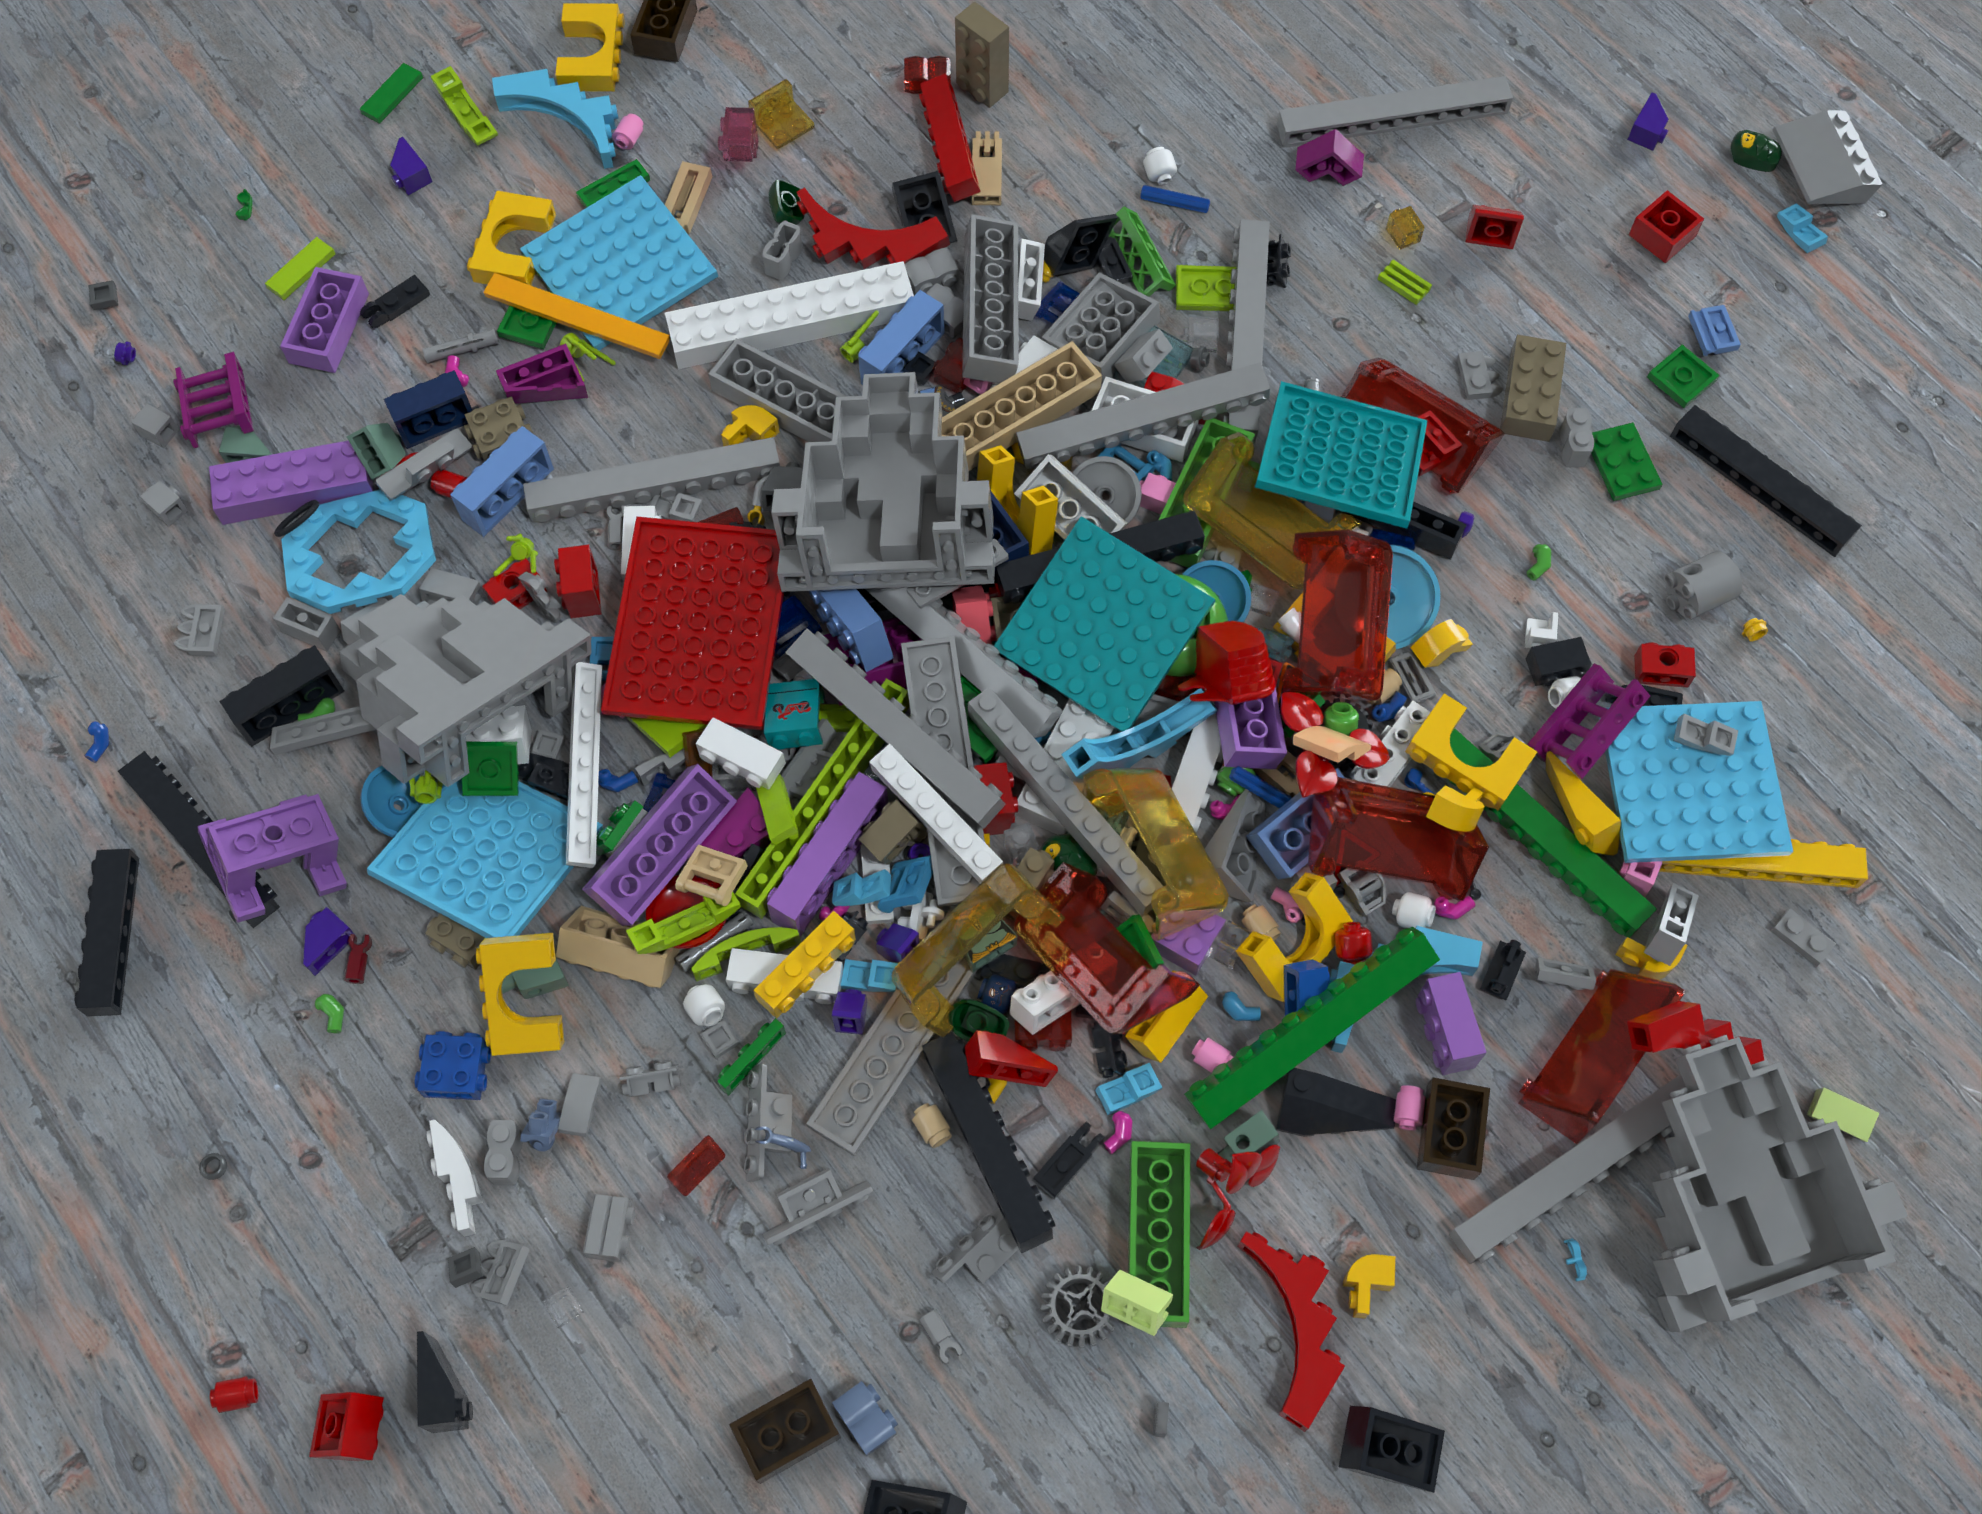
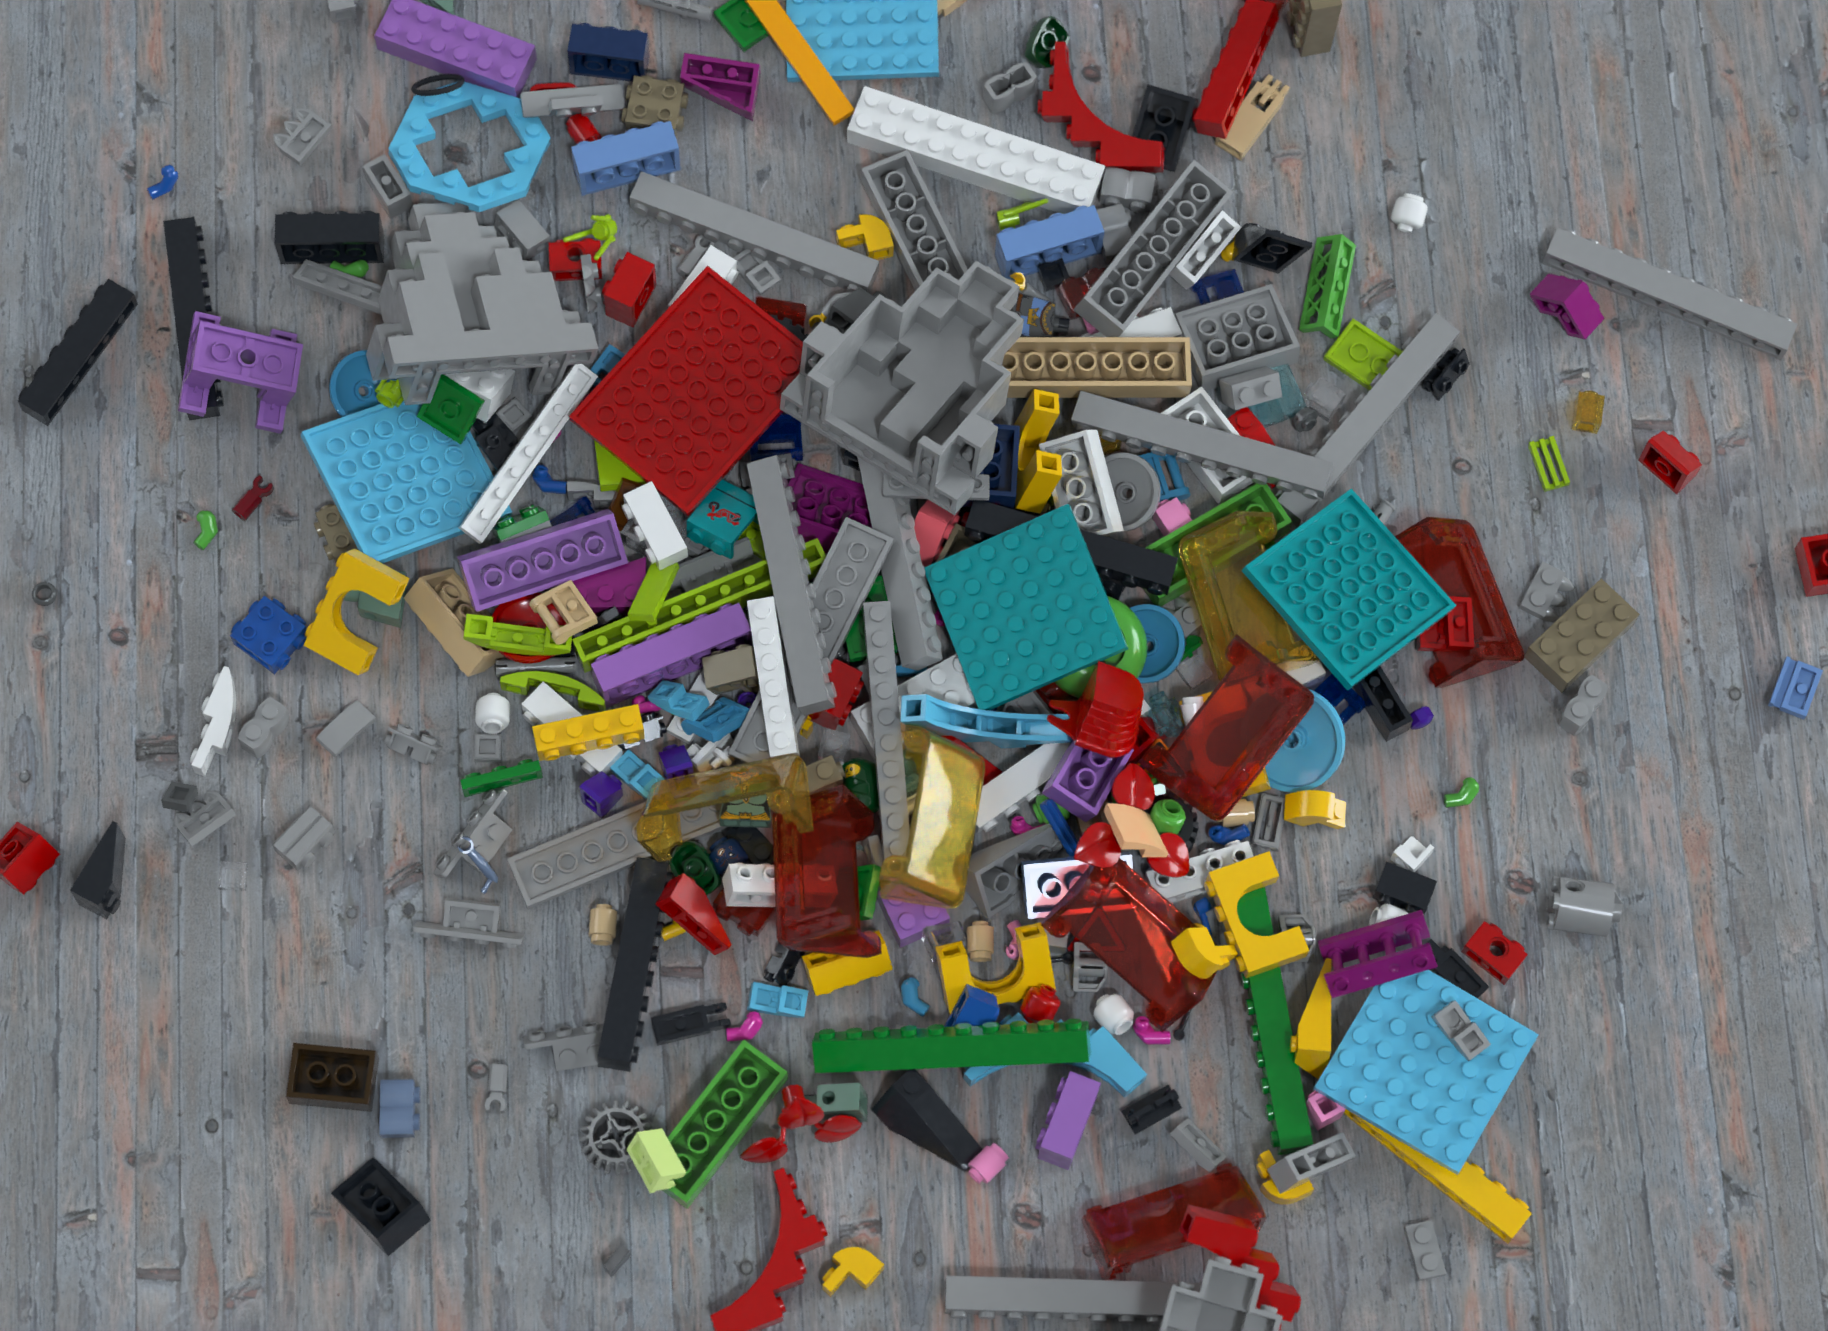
camera: 30 degrees right, 5 degrees up
(324, 940) = (236, 466): dark purple slope -> none
(377, 448) = (542, 64): sand green torso -> none
(453, 364) = (652, 27): dark pink arm -> none
(542, 1125) = (306, 726): sand blue hips -> none
(580, 347) = (770, 69): lime plant -> none
(696, 1166) = (402, 835): clear red slope -> none
(855, 626) = (824, 479): medium blue brick -> none
(1113, 262) = (1297, 280): black hinge -> none
(1161, 463) = (1199, 496): dark azure arm -> none
(1175, 199) = (1401, 253): blue axle -> none
(1210, 1054) = (860, 1015): bright pink brick -> none
(1453, 1129) = (1007, 1201): dark brown brick -> none
(1624, 462) = (1611, 753): green plate -> none
(1683, 376) = (1730, 711): green plate -> none
(1754, 629) = (1601, 974): yellow plate -> none
(1765, 480) = (1722, 851): black brick -> none

